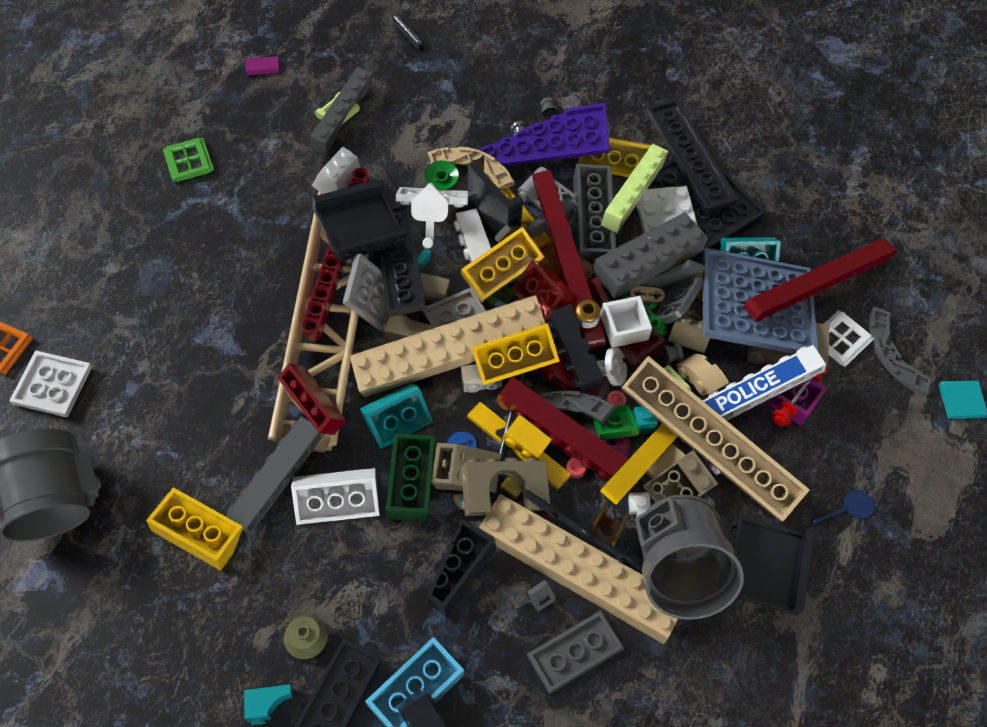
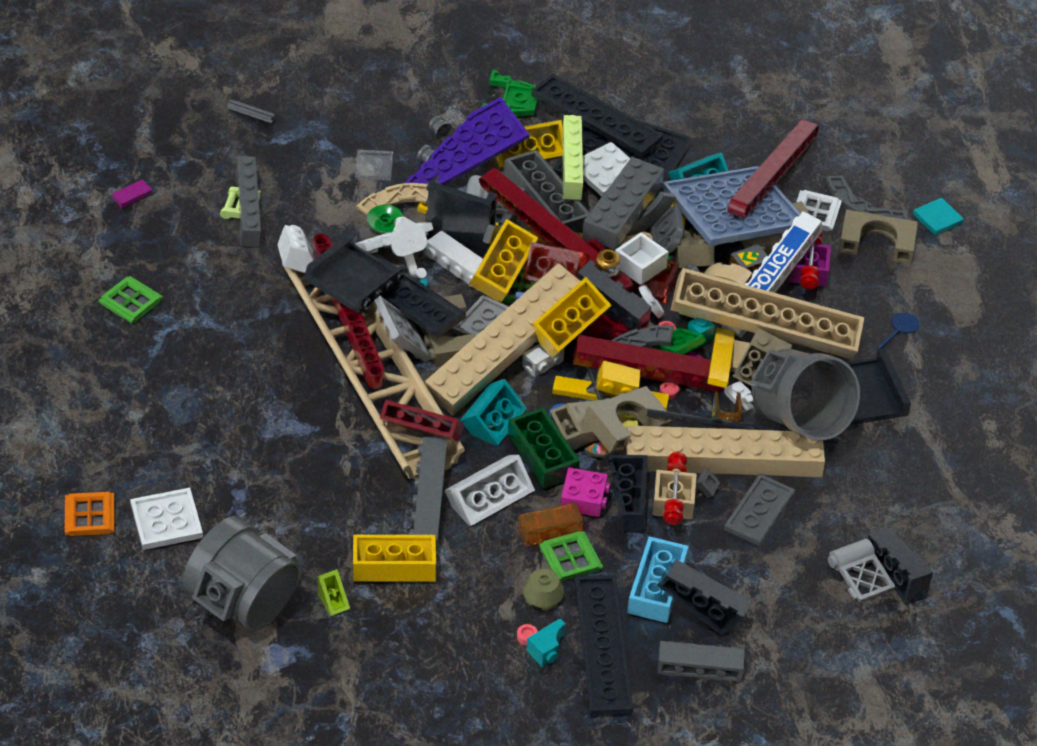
camera: 30 degrees left, 15 degrees down
(120, 537) = (332, 592): none -> lime slope
(259, 677) = (524, 632): none -> coral tile
(359, 609) = (571, 556): none -> bright green piece
(362, 564) = (549, 523): none -> clear orange brick
(416, 546) = (586, 490): none -> dark pink brick
(471, 120) = (374, 165): none -> clear tile
(497, 593) = (674, 490): none -> tan brick
(633, 110) = (516, 94): none -> green wing
(737, 365) = (749, 258): none -> piece
(912, 399) = (900, 231): none -> dark tan arch

